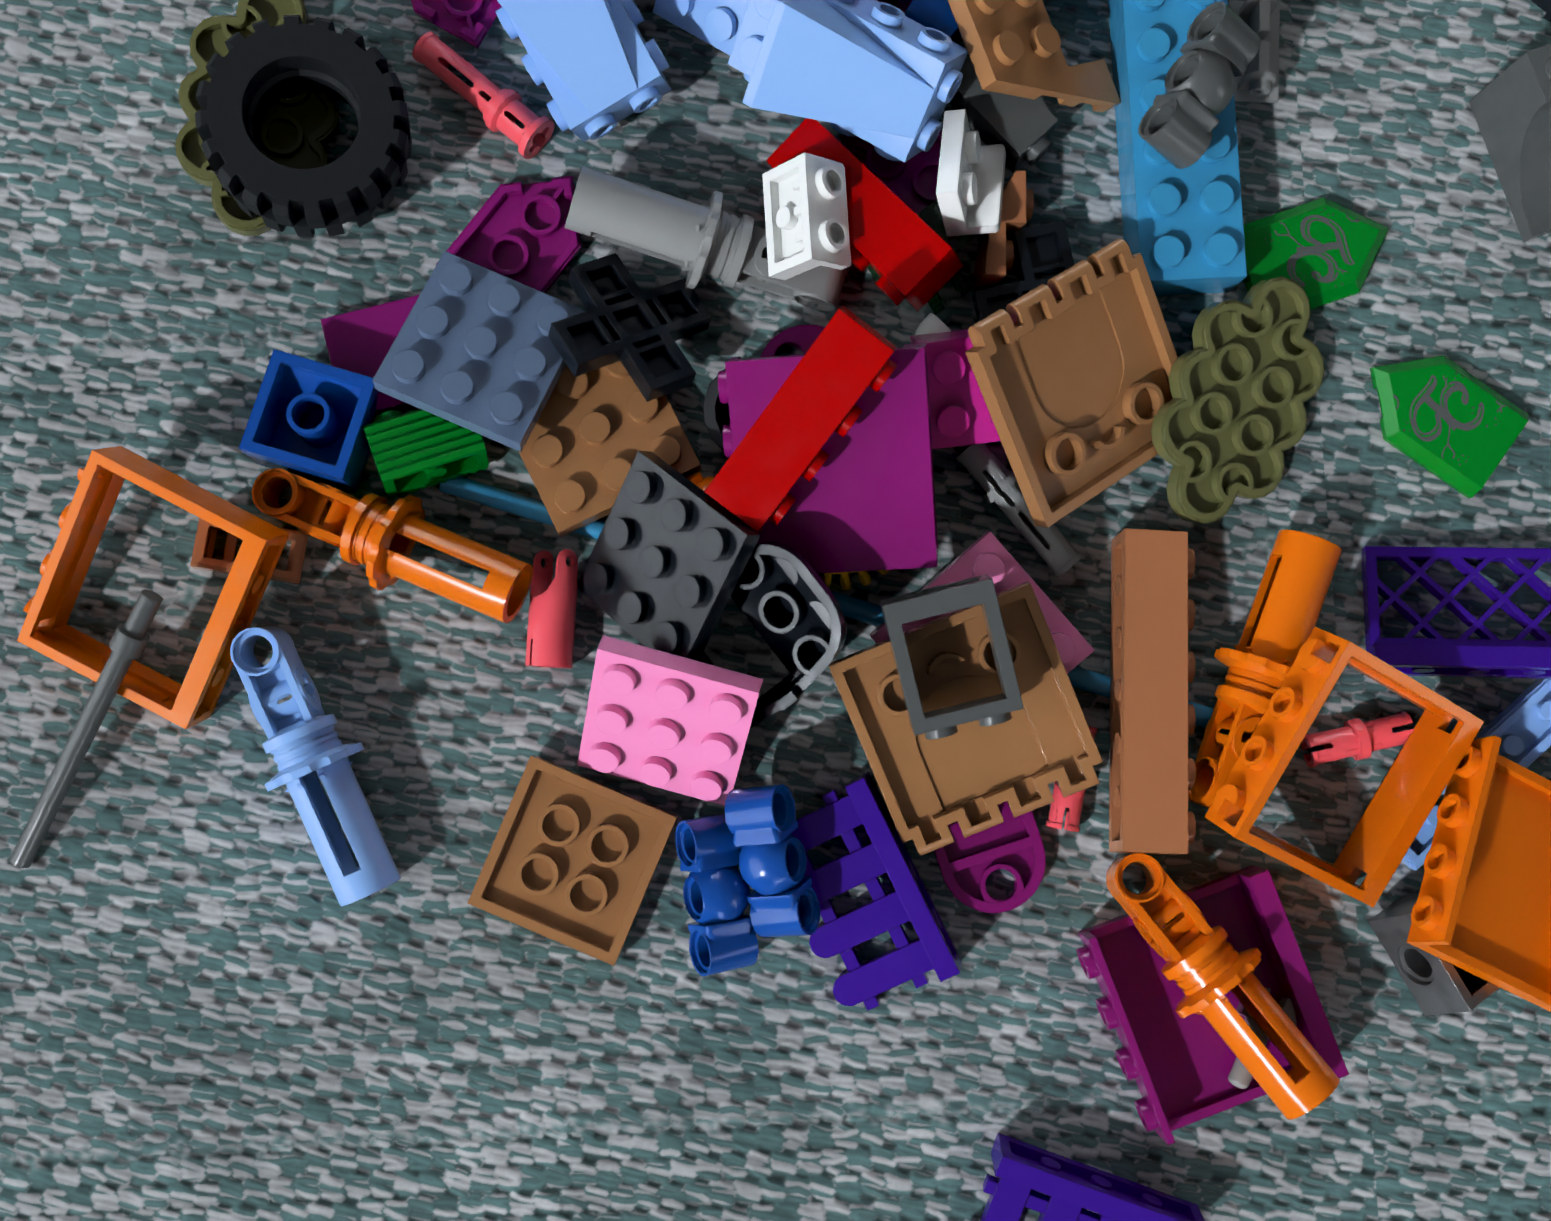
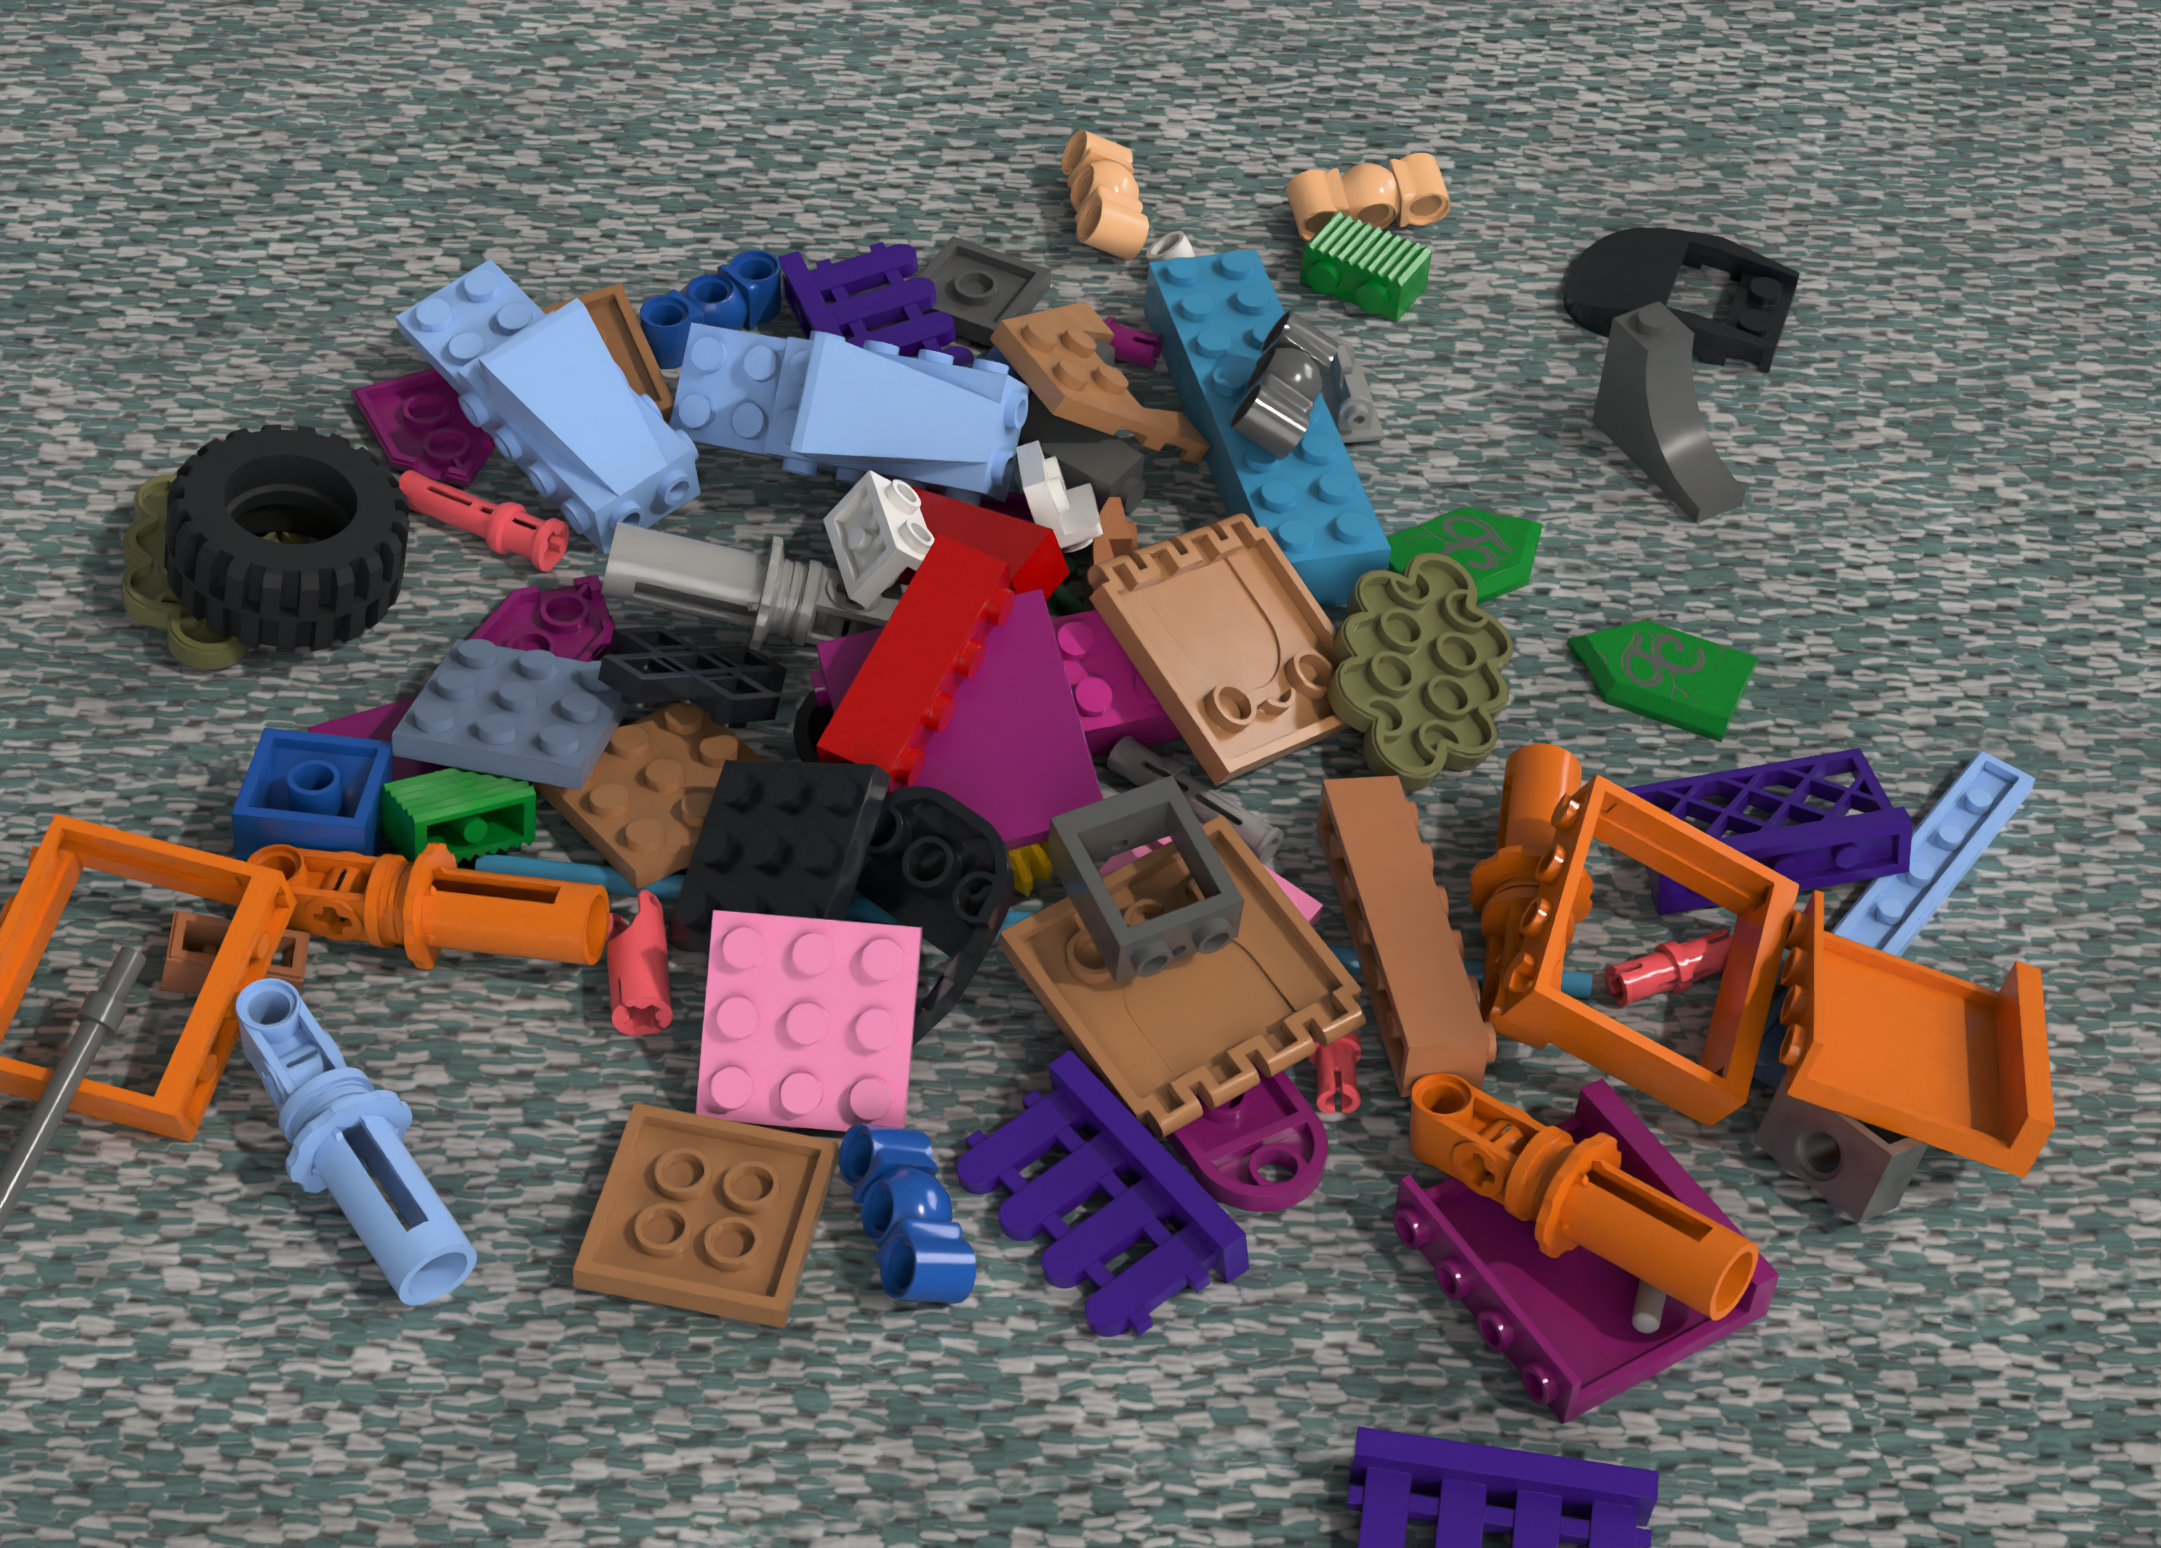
camera: 10 degrees left, 40 degrees down
(772, 861) = (974, 1154): blue piece -> none

